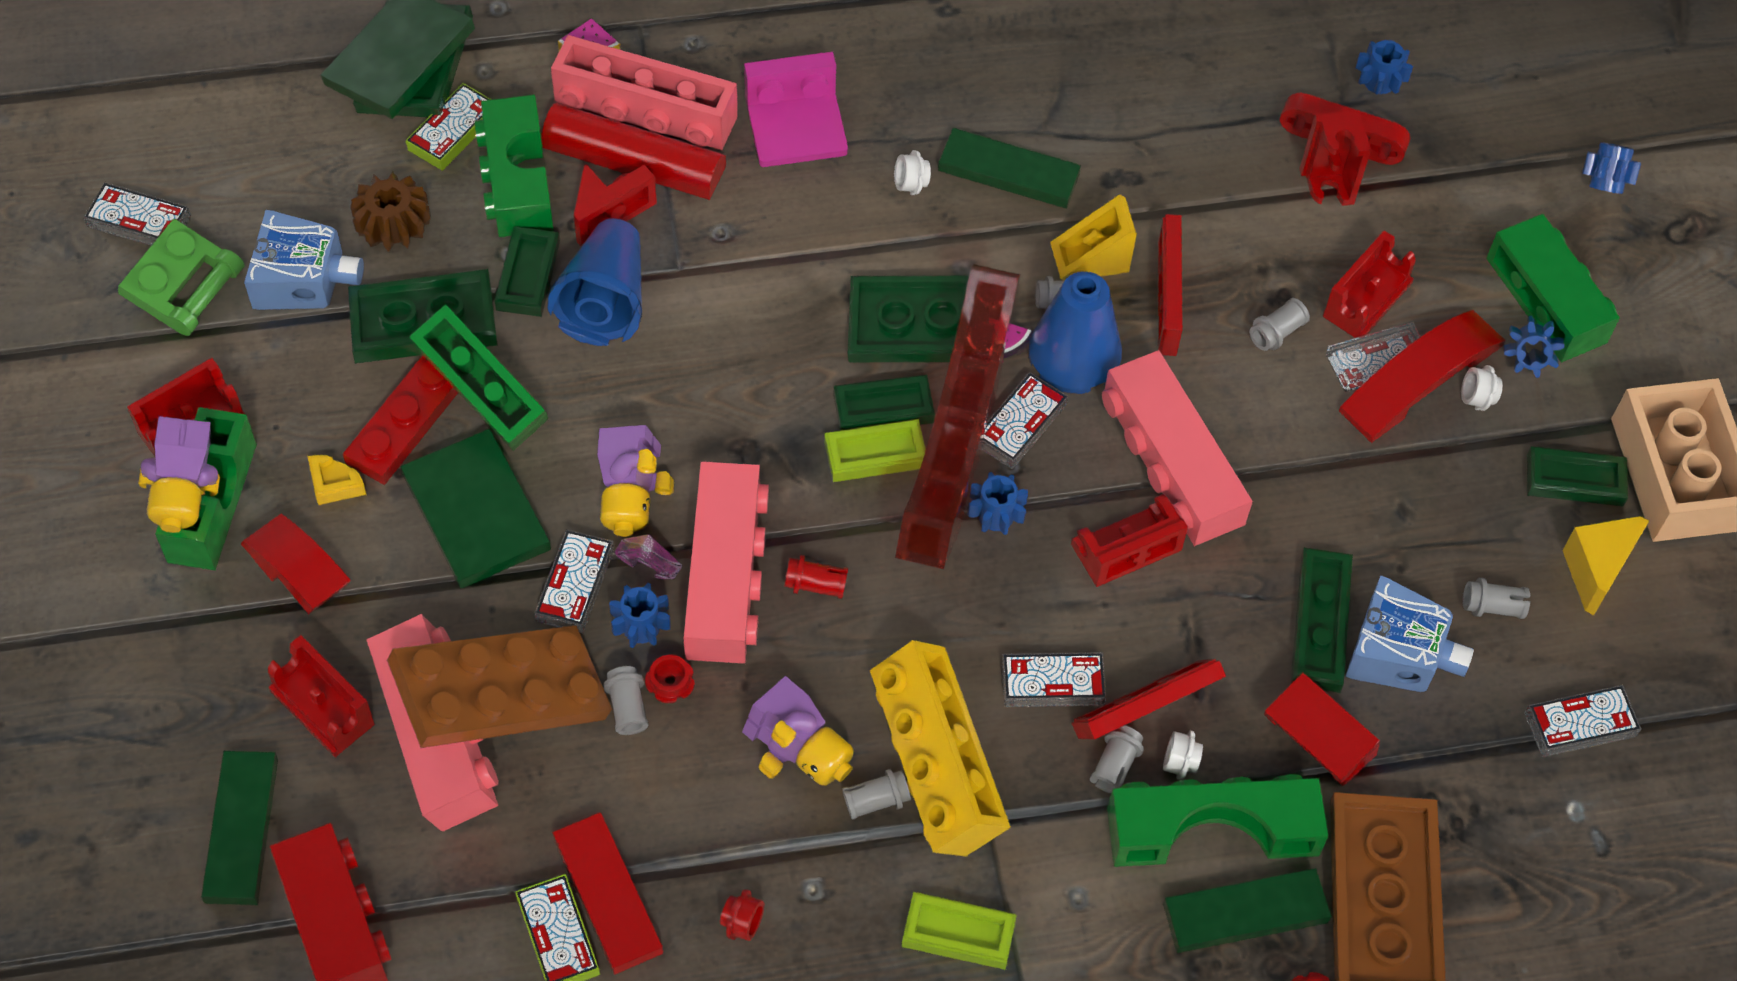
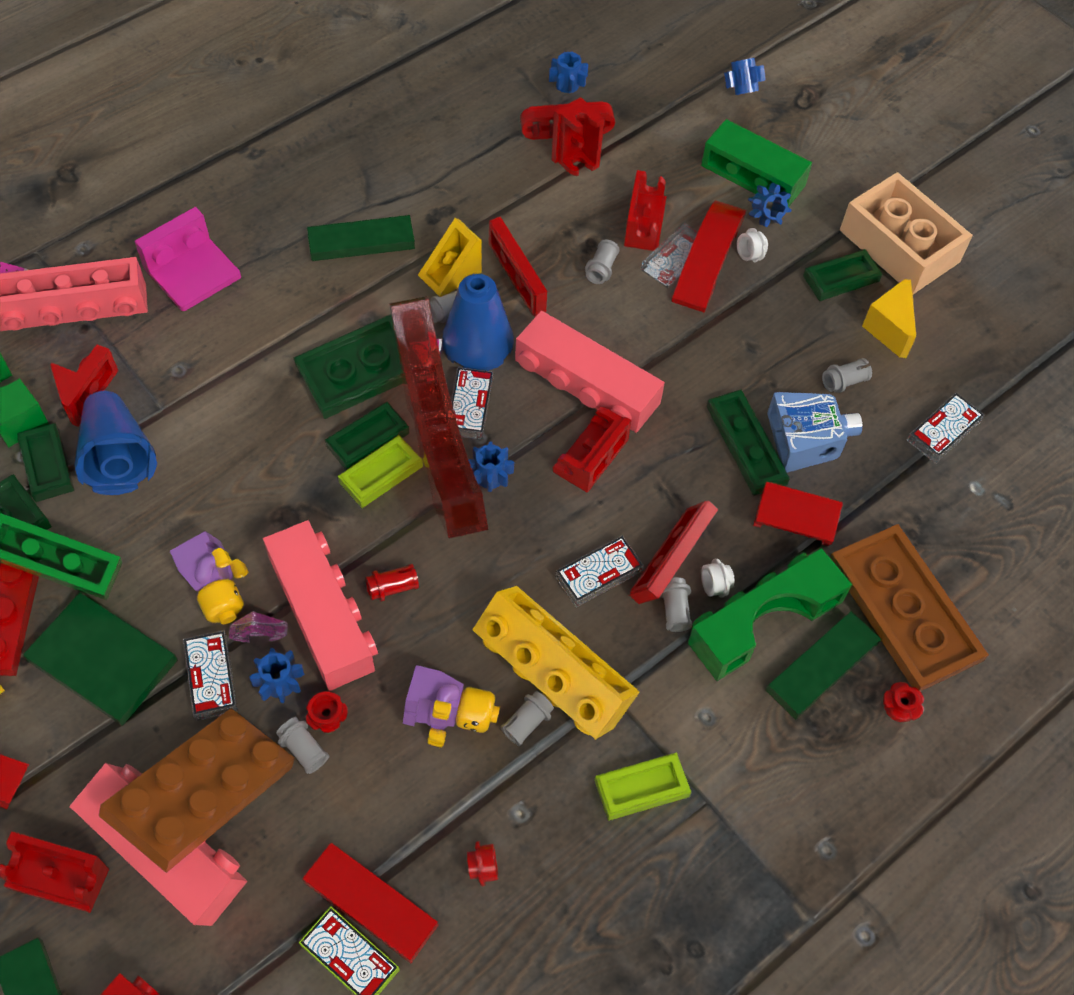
camera: 30 degrees left, 0 degrees up
(629, 147) = (77, 339): red brick -> none
(912, 172) = (295, 269): white plate -> none

